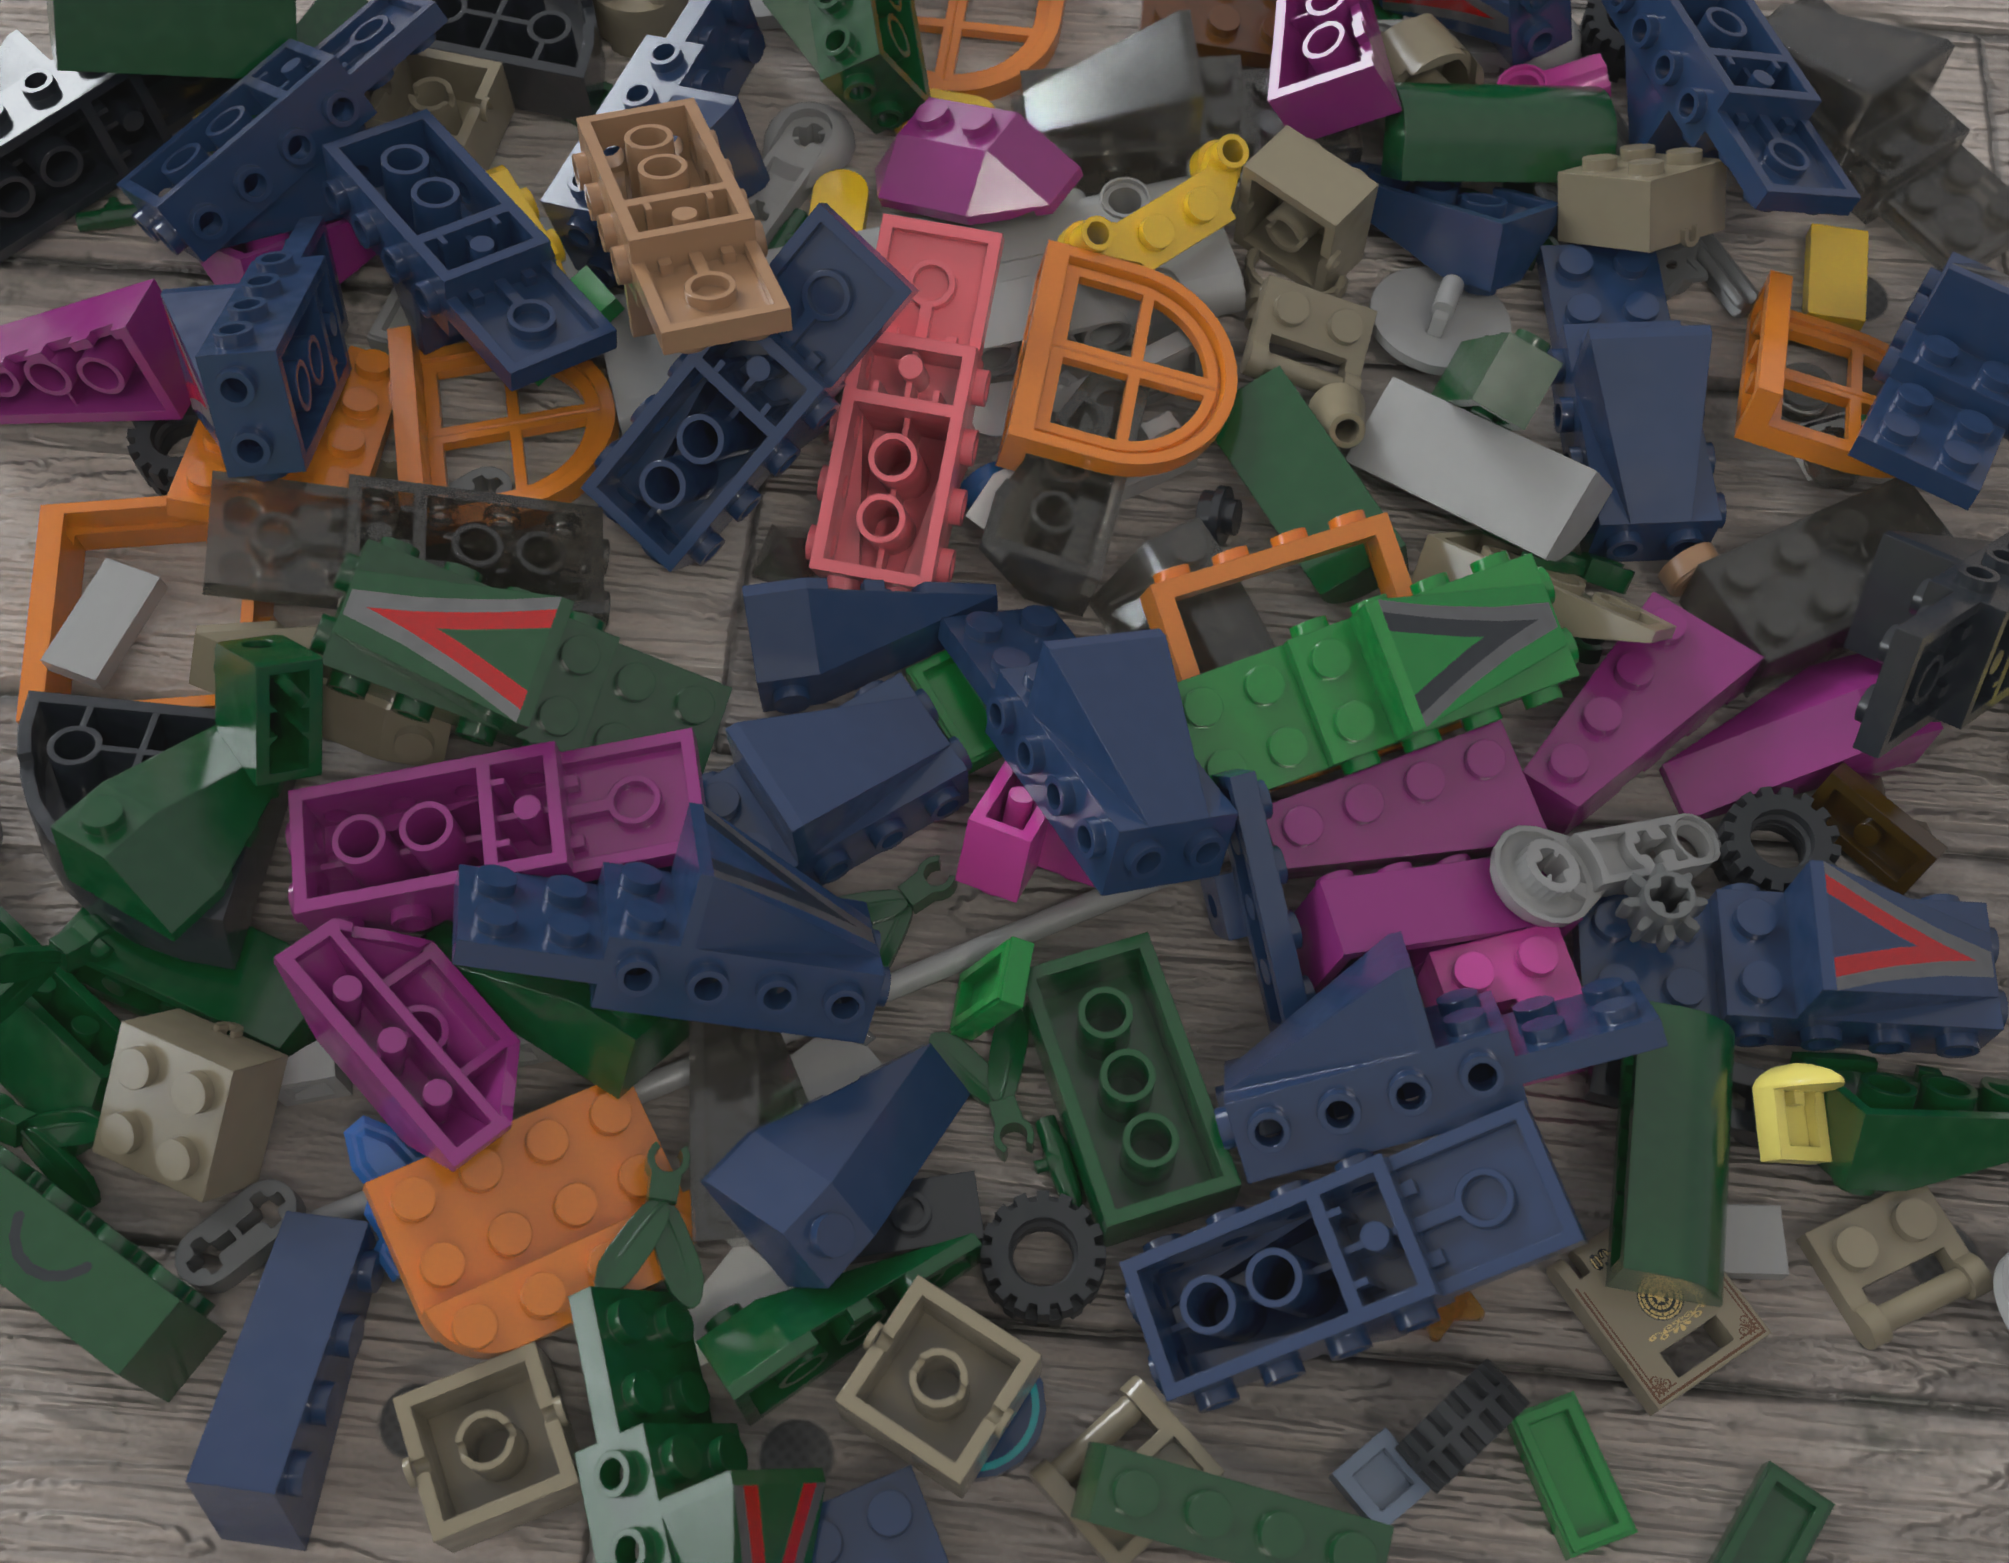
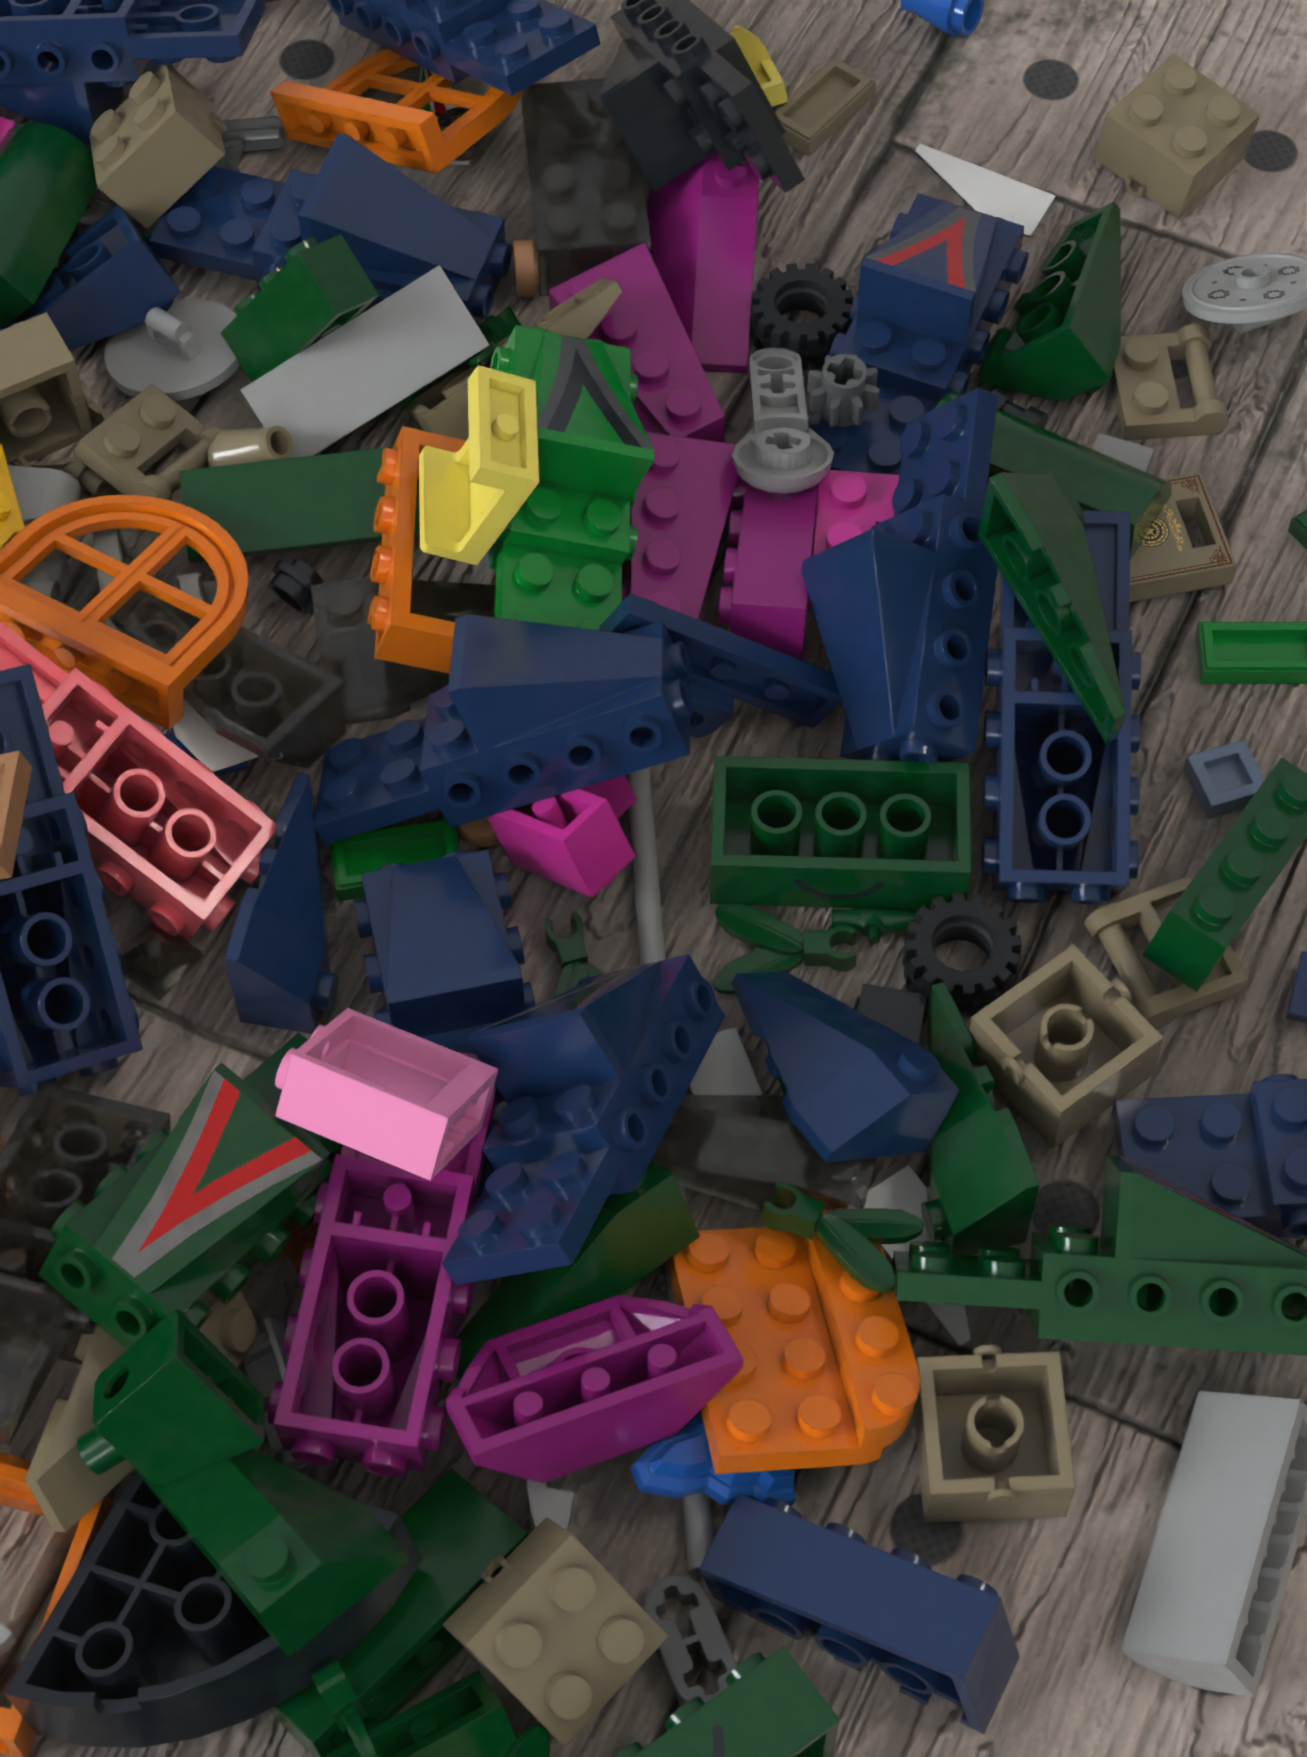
camera: 70 degrees left, 5 degrees down
(580, 809) = (385, 1092): none -> bright pink window
(992, 989) = (710, 901): green tile -> none
(1335, 577) = (481, 487): none -> light yellow panel
(1462, 1425) = (1211, 693): black tyre -> none
(1466, 1157) = (1045, 558): none -> dark green wedge
(1793, 1113) = (1038, 388): light yellow plate -> none
(1836, 275) = (278, 57): yellow tile -> none
(1876, 829) = (827, 239): dark brown tile -> none

